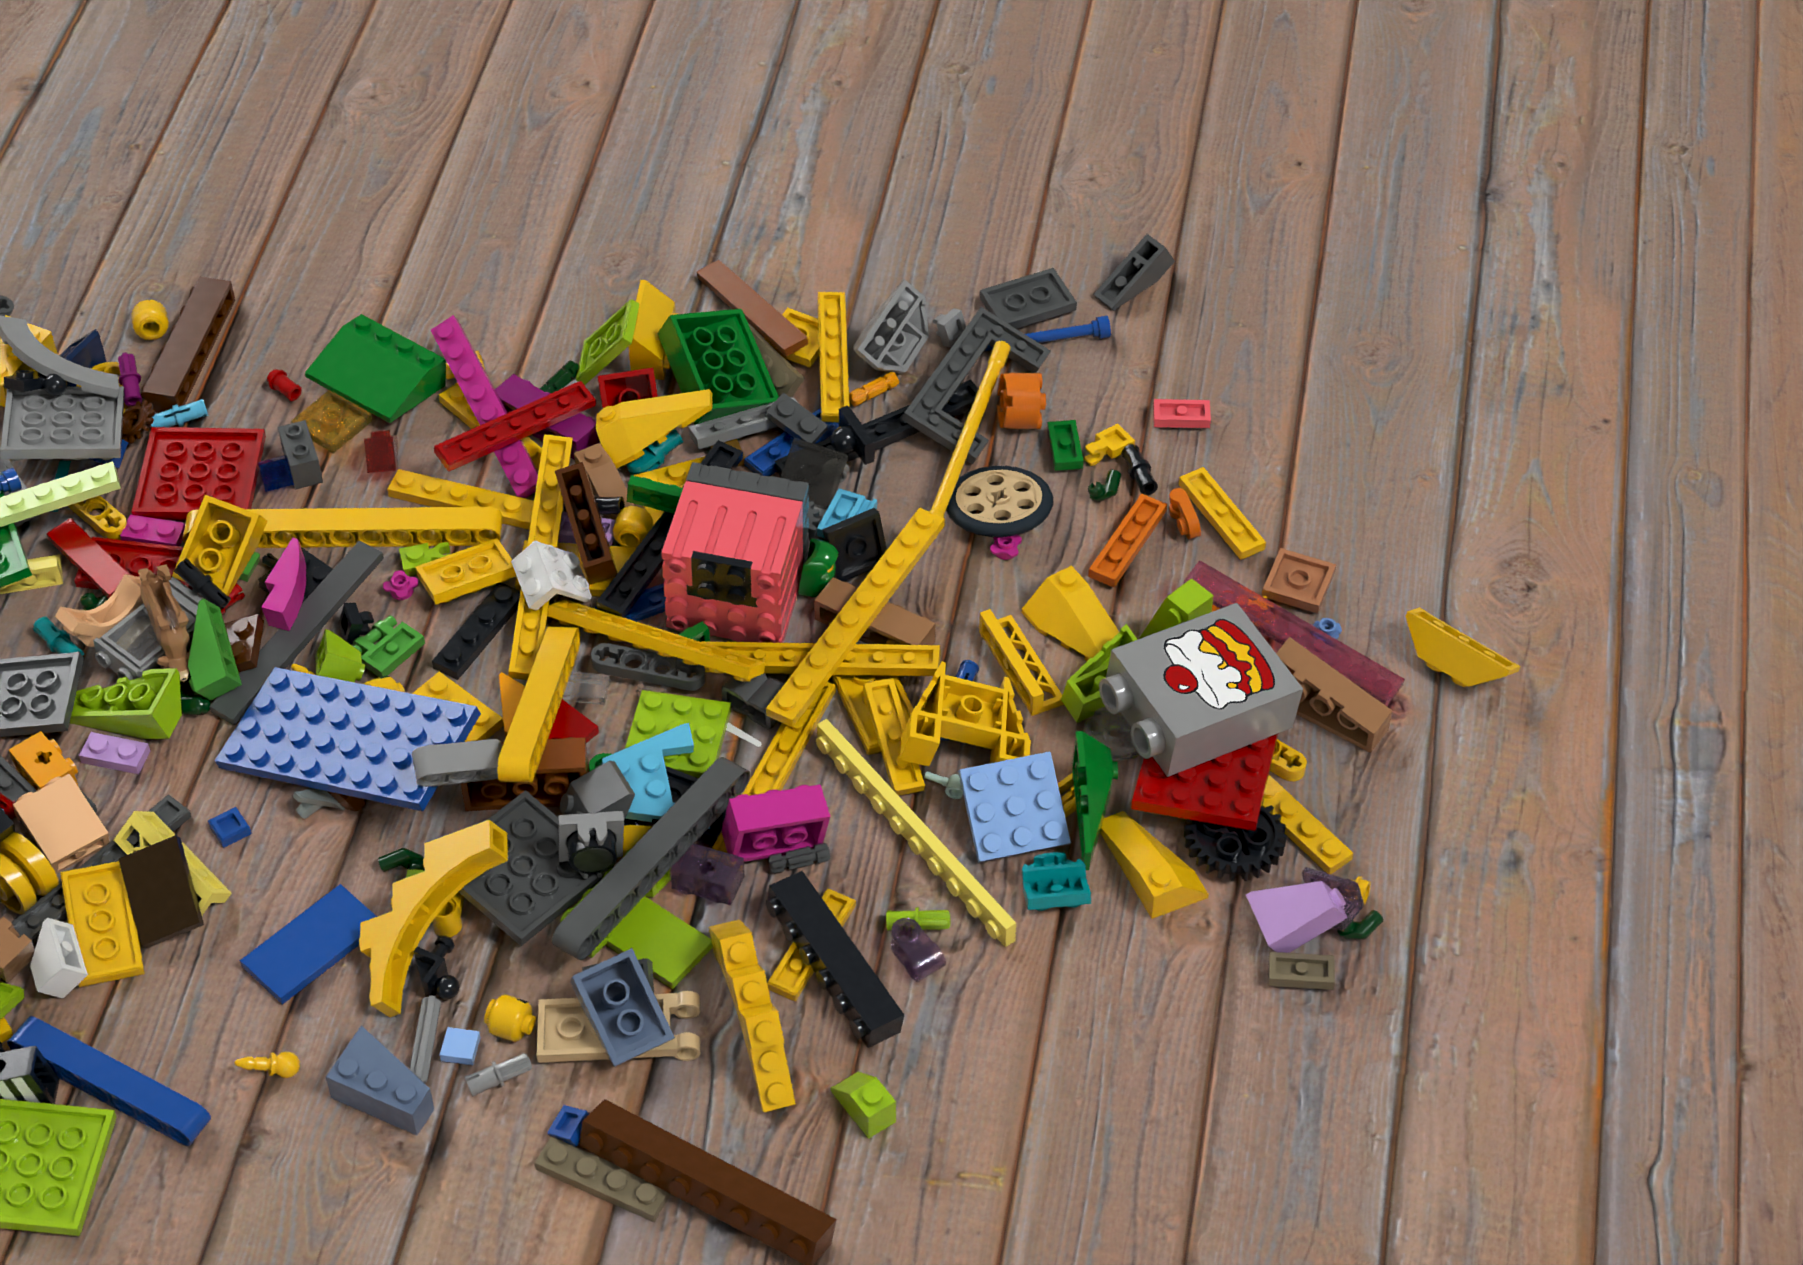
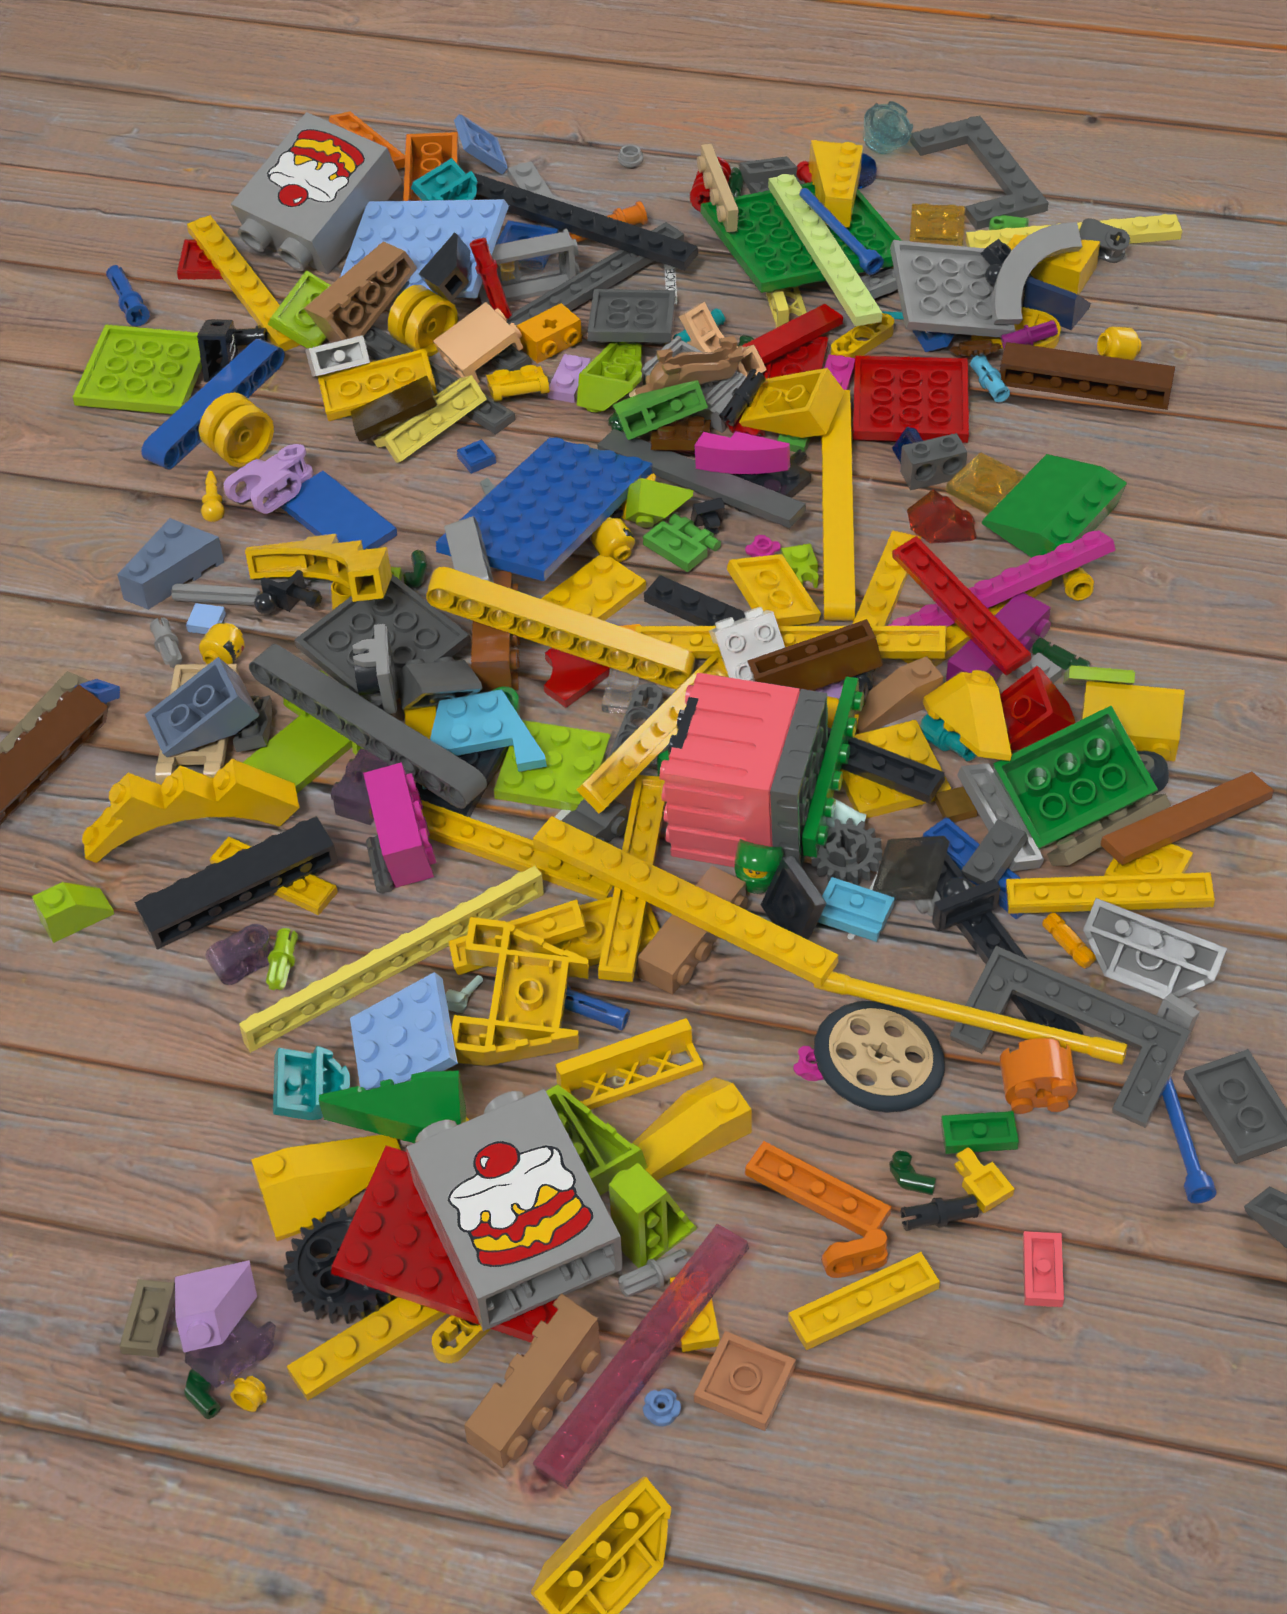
camera: 95 degrees right, 0 degrees up
(116, 794) = (517, 382): none -> yellow plate
(180, 1034) = (236, 429): none -> yellow wheel
(257, 998) = (275, 478): none -> lavender piece
(279, 381) = (1043, 443): red pin -> none

